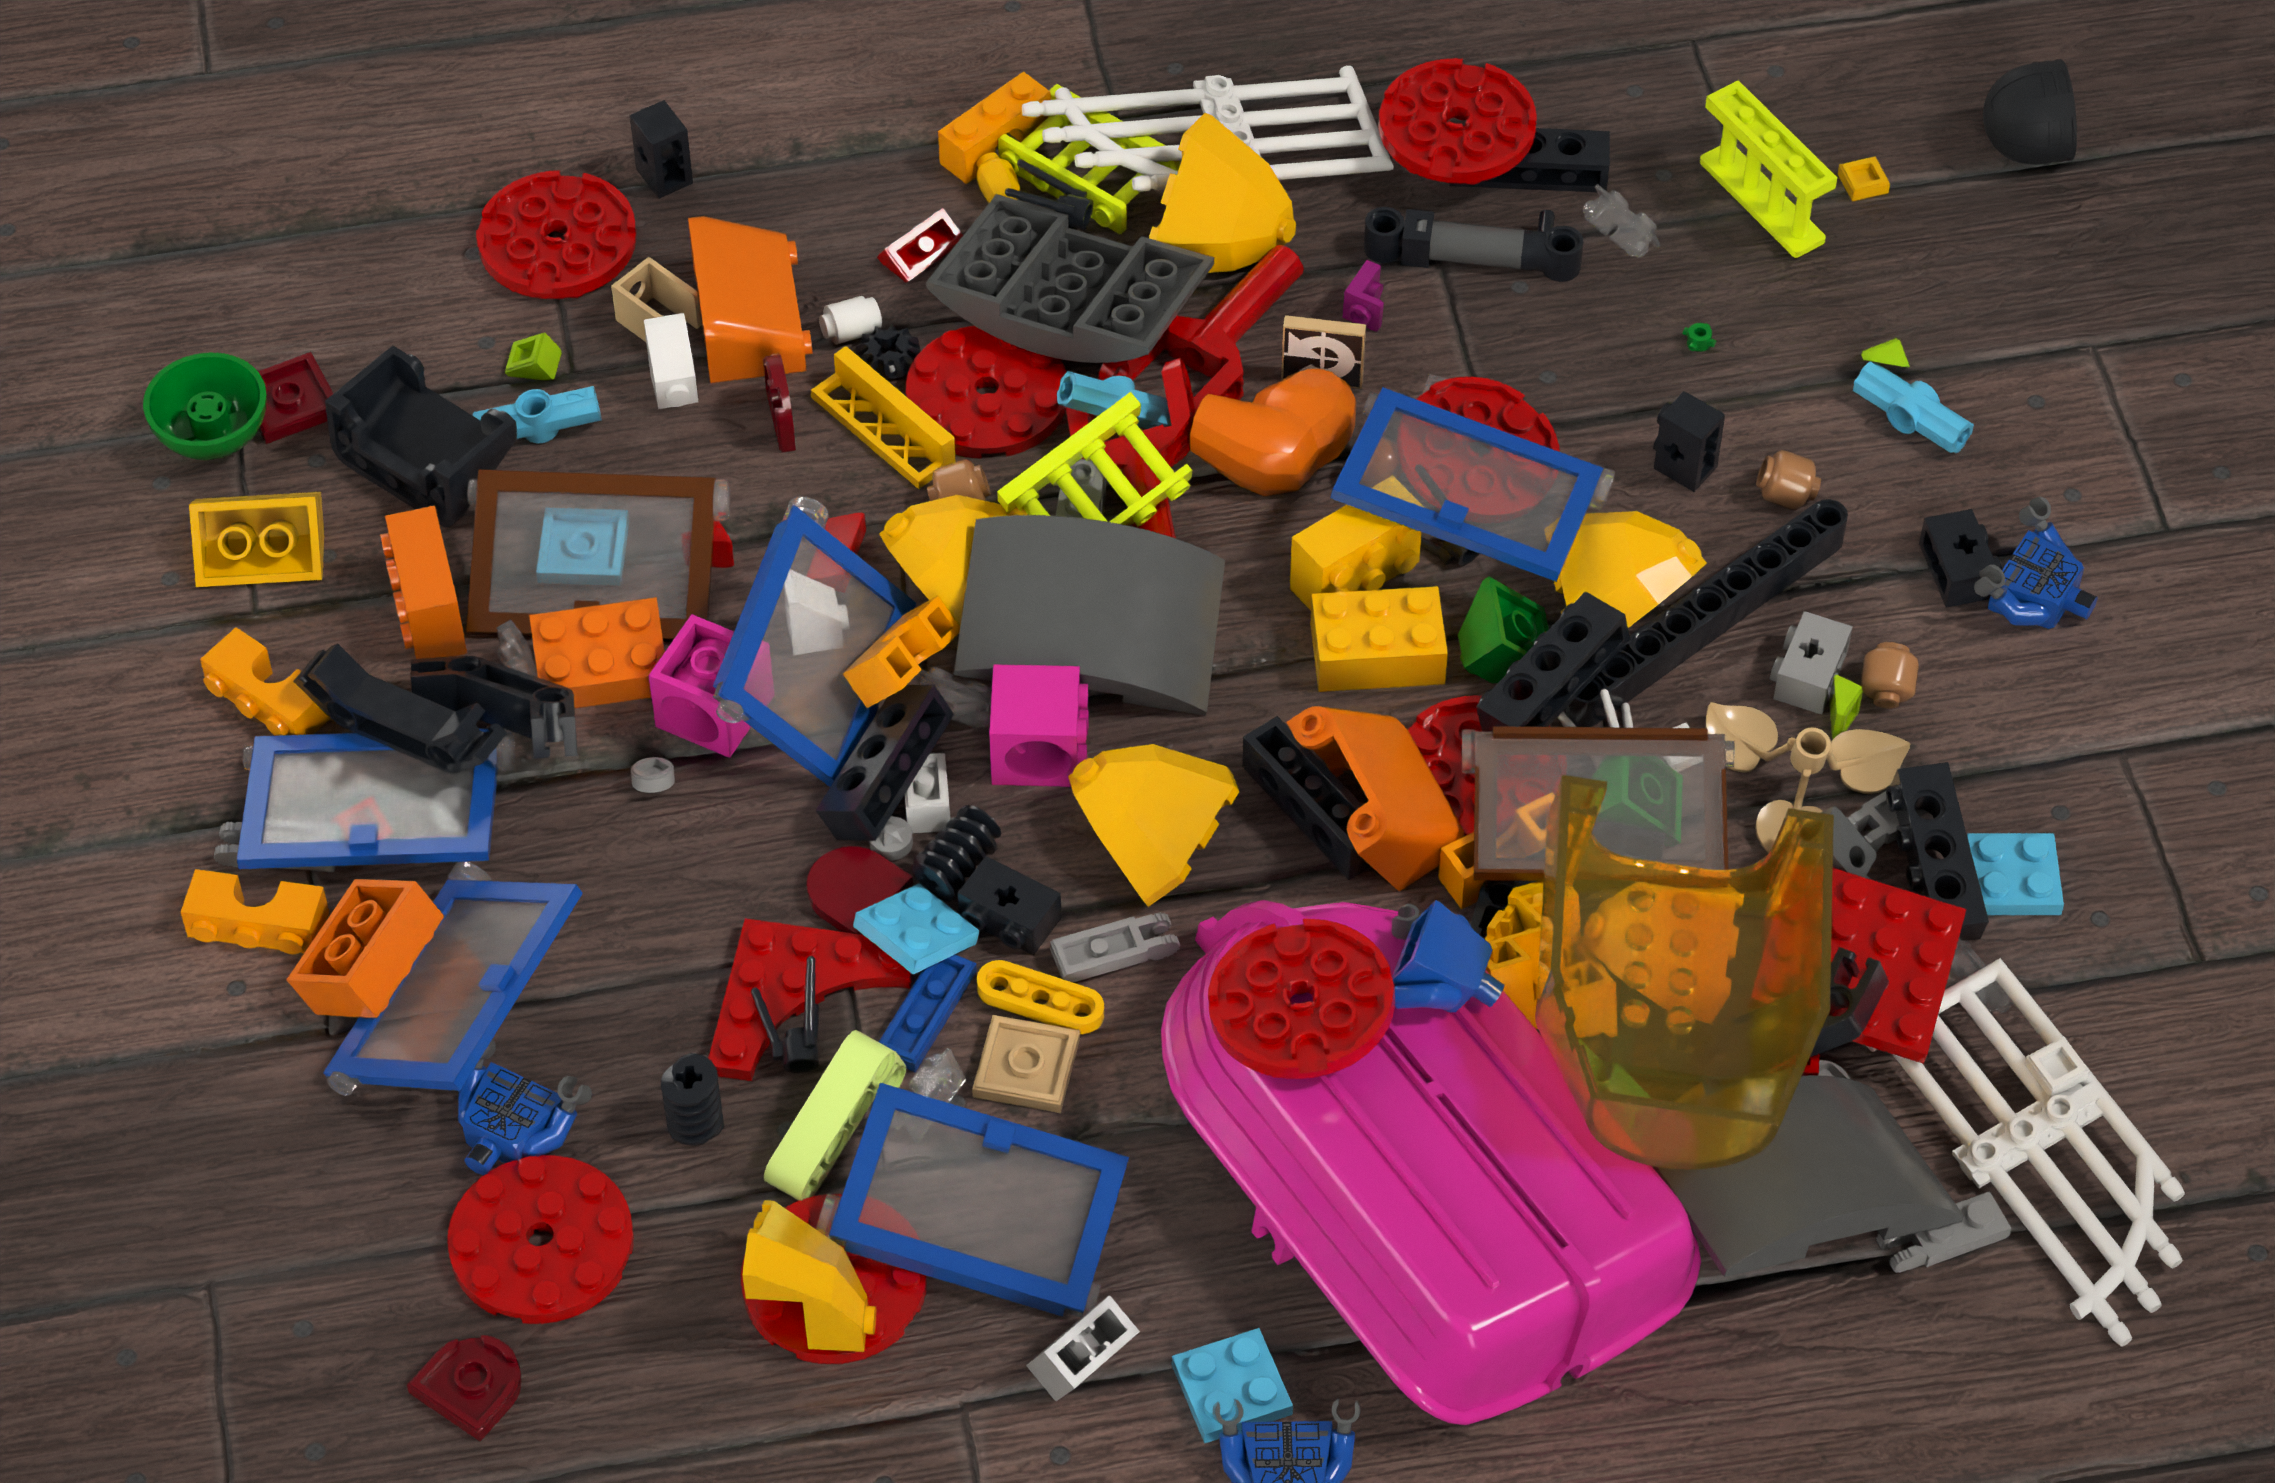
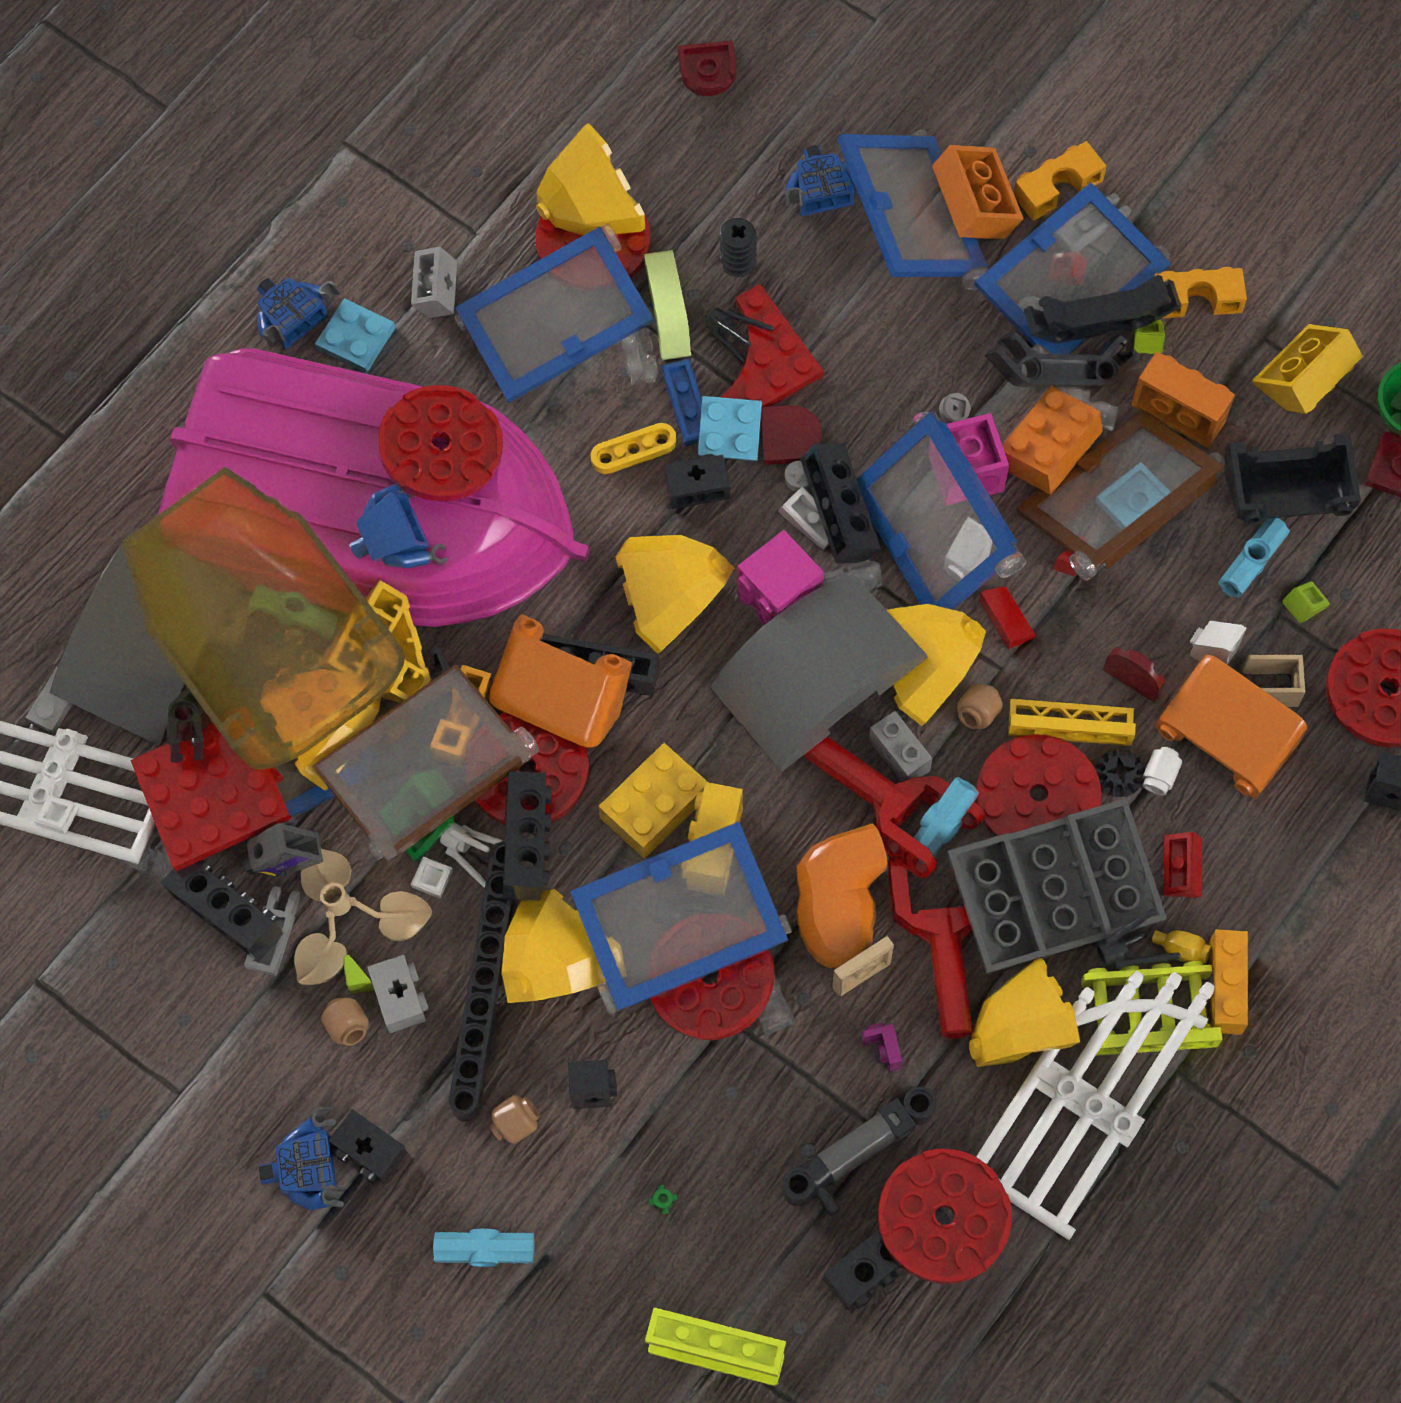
camera: 140 degrees right, 15 degrees up
(548, 1281) = (738, 124): red plate -> none
(896, 654) = (890, 540): light orange arch -> none
(956, 852) = (751, 483): black piece -> none
(1026, 1063) = (608, 412): tan tile -> none
(1090, 445) = (911, 747): neon yellow fence -> none
(1113, 946) = (624, 504): light grey hinge -> none
(1499, 630) = (581, 858): green slope -> none
(1633, 230) = (771, 1251): clear hinge -> none
(1889, 352) = (531, 1276): lime slope -> none
(2018, 873) = (179, 948): medium azure plate -> none

